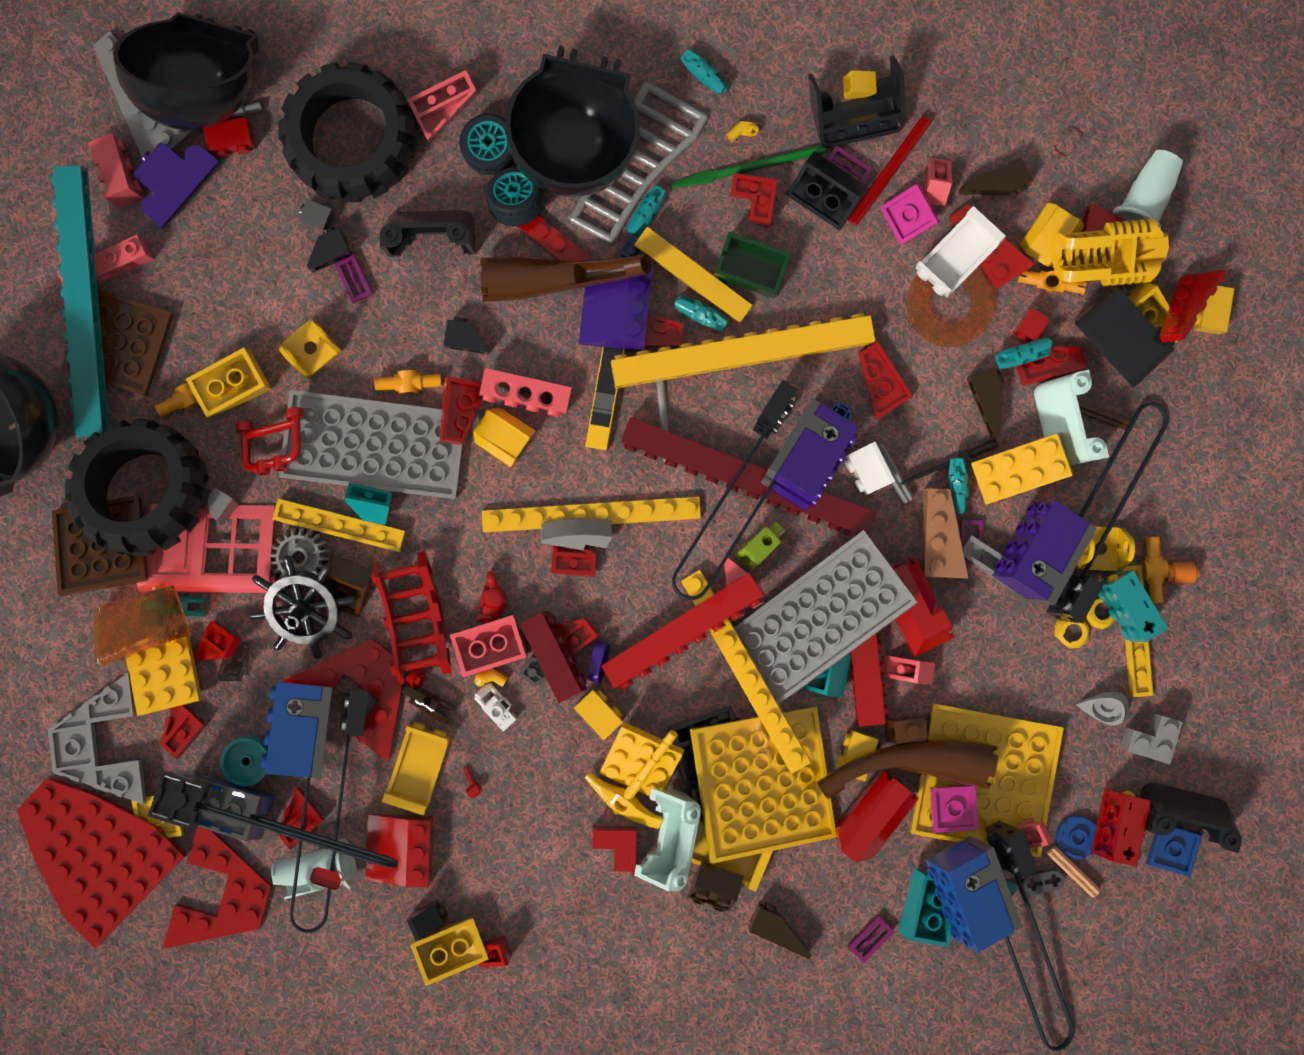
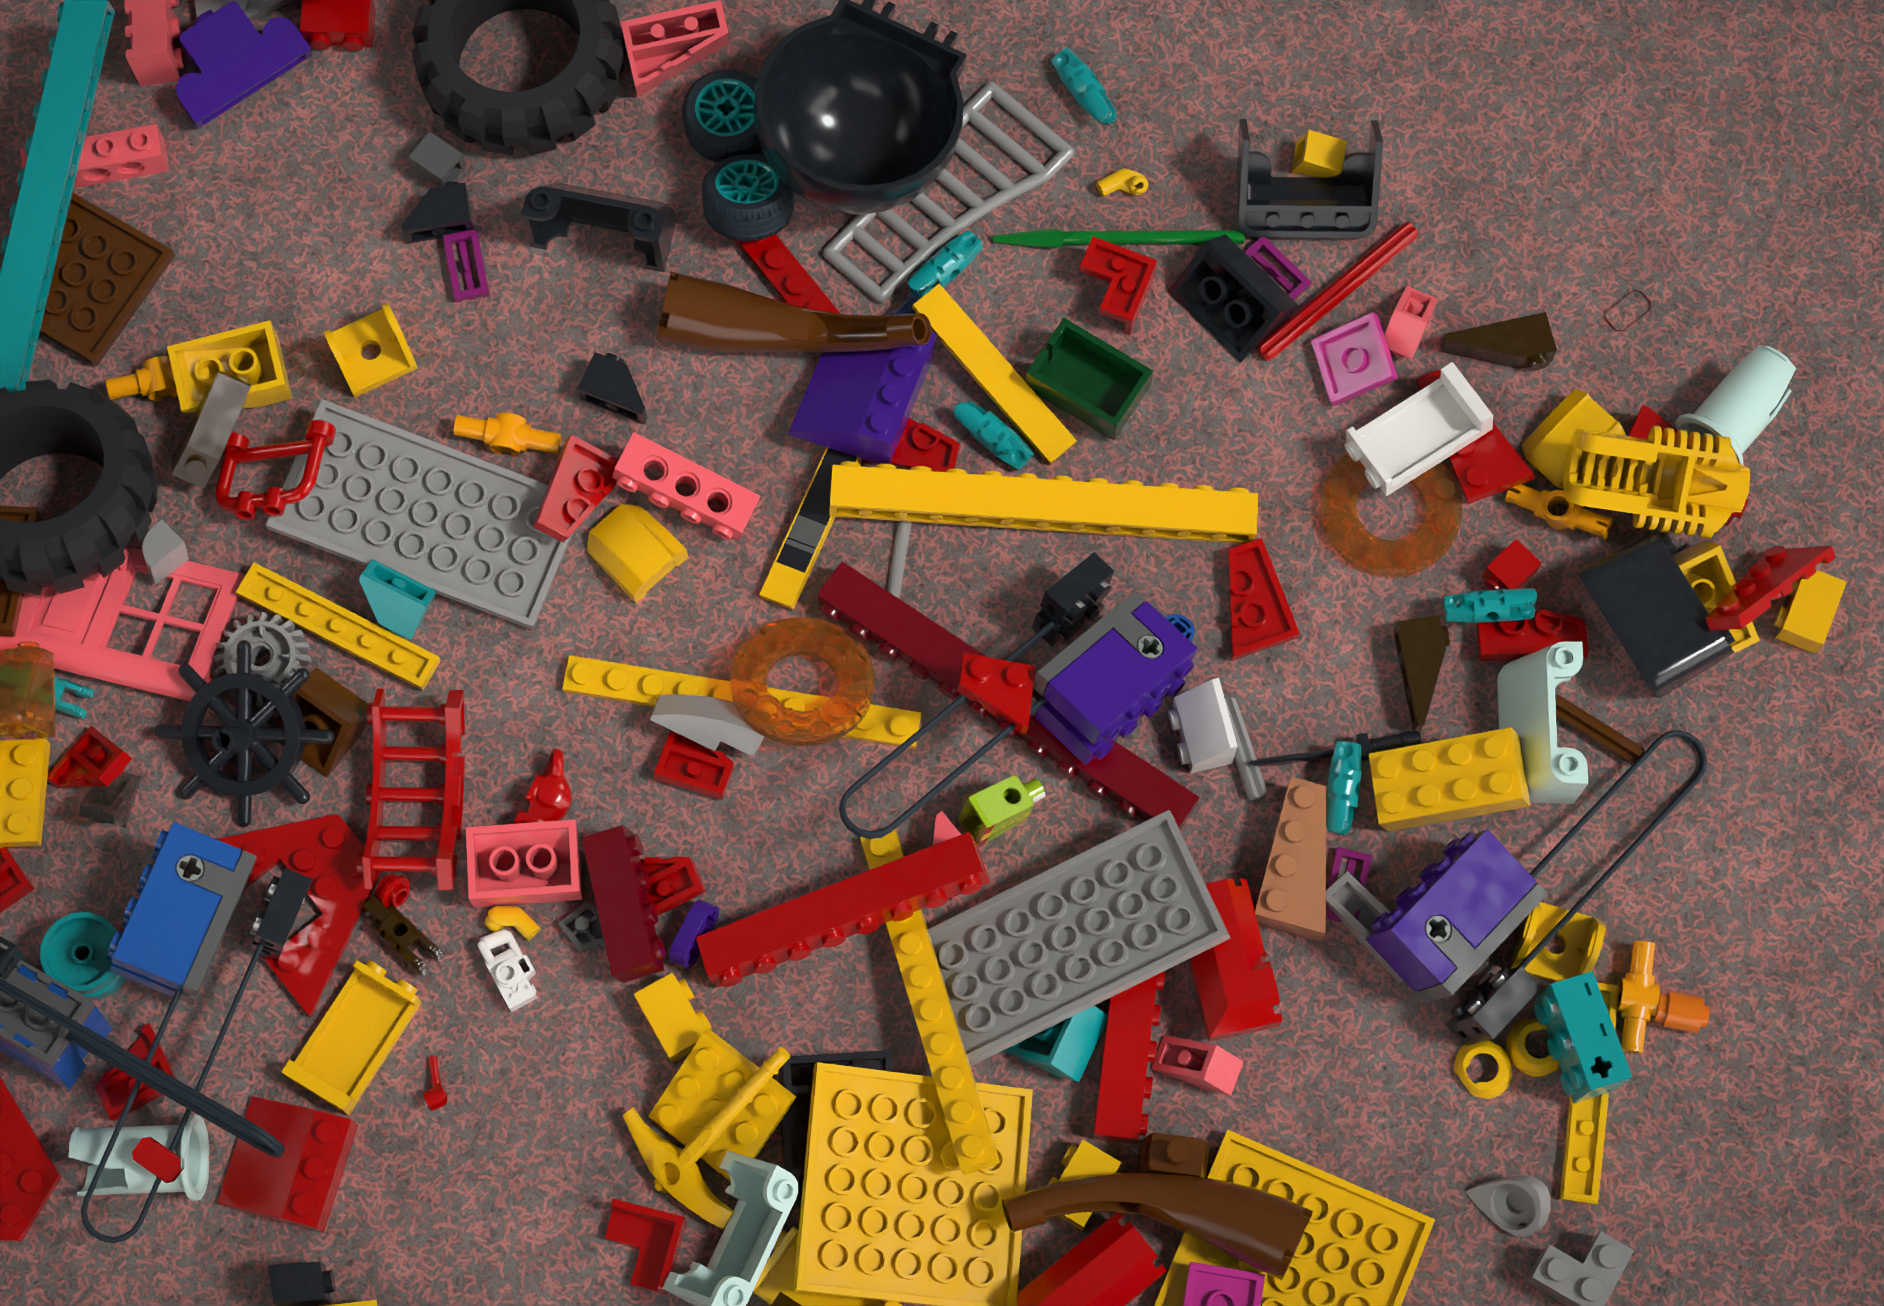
camera: 10 degrees right, 15 degrees down
(227, 425) = (209, 429): none -> slope
(625, 467) = (809, 638): none -> clear orange plate
(747, 480) = (998, 687): none -> red wing

